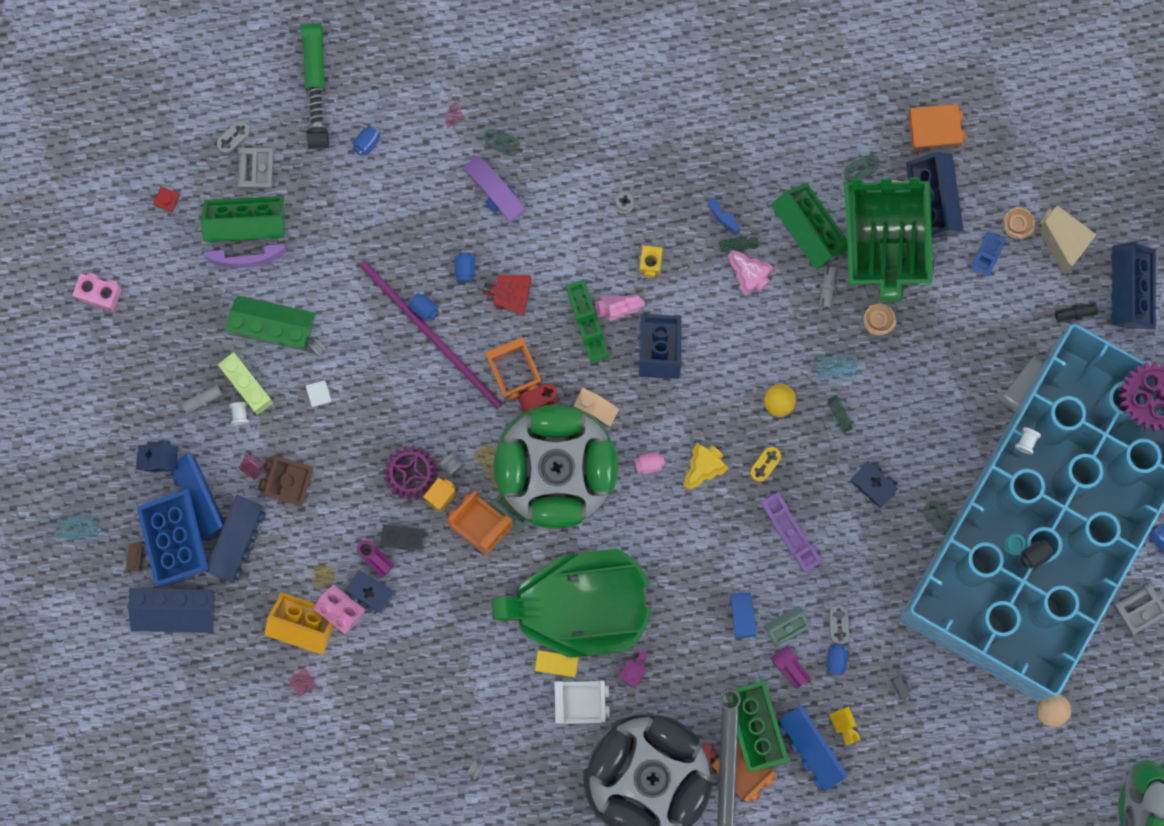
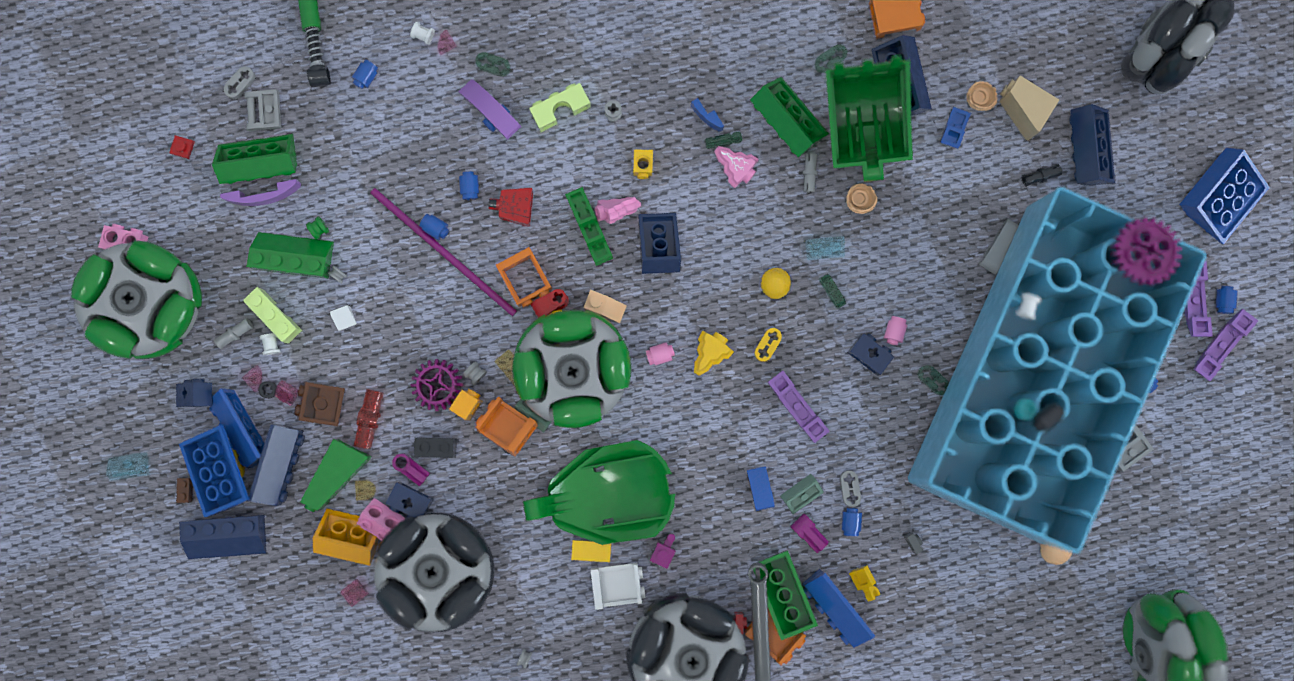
camera: 15 degrees left, 5 degrees up
(110, 353) = (119, 300): none -> piece
(218, 448) = (253, 378): none -> clear pink tile
(238, 459) = (262, 392): none -> black bush
(293, 555) = (334, 472): none -> green slope
(301, 296) = (317, 227): none -> green wheel
(334, 501) = (368, 419): none -> clear red piece
(390, 664) = (394, 572): none -> piece
(430, 103) = (422, 33): none -> white bush
(583, 185) = (572, 97): none -> yellowish green arch
(903, 462) = (895, 330): none -> bright pink brick

